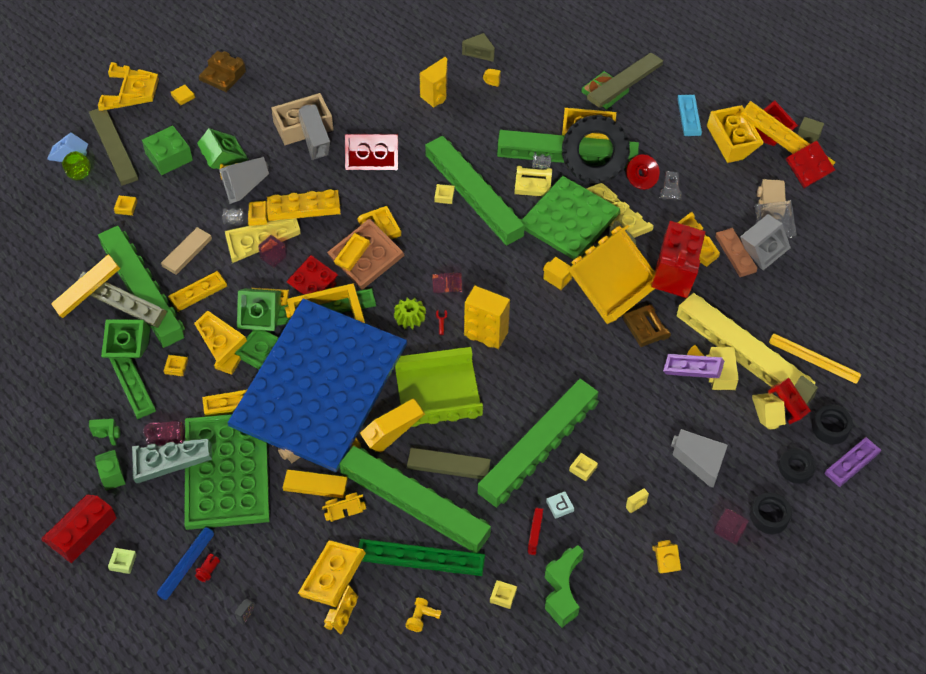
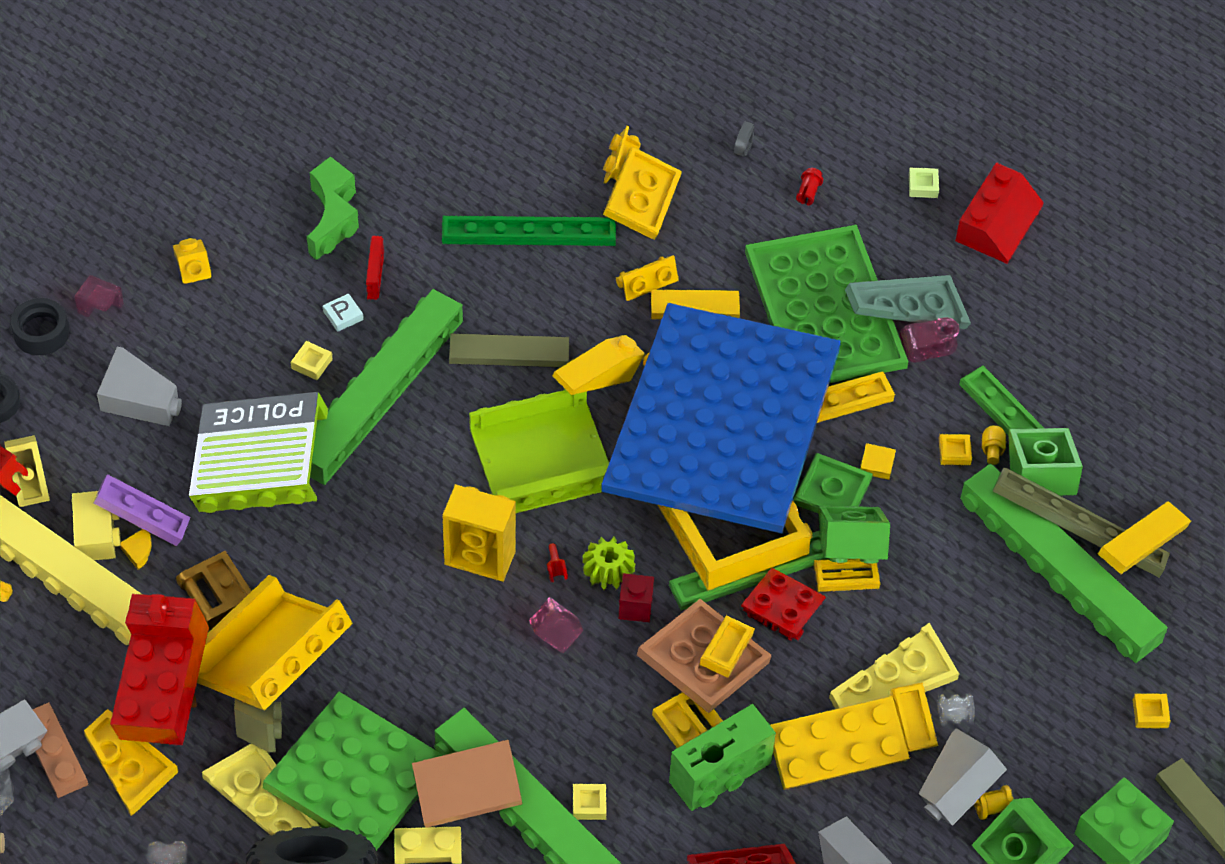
camera: 170 degrees right, 0 degrees up
(105, 427) = (1017, 339): bright green bracket -> none
(109, 470) = (990, 288): bright green slope -> none
(150, 363) = (993, 443): none -> yellow cylinder
(185, 563) = (840, 190): blue axle -> none
(186, 251) = (1012, 642): tan tile -> none
(197, 291) = (967, 573): yellow tile -> none
(219, 337) = (900, 488): yellow wing -> none
(272, 251) = (863, 648): clear pink panel -> none
(369, 194) = (722, 758): none -> bright green piece
(397, 288) = (636, 597): none -> dark red brick
(415, 499) = (548, 290): bright green brick -> none
(415, 622) = (522, 151): yellow piece -> none
(503, 594) = (411, 193): light yellow plate -> none
(509, 195) = (467, 783): none -> nougat tile
(557, 273) = (369, 661): yellow brick -> none
(621, 394) = (256, 452): none -> panel
(637, 500) = (232, 320): light yellow tile -> none

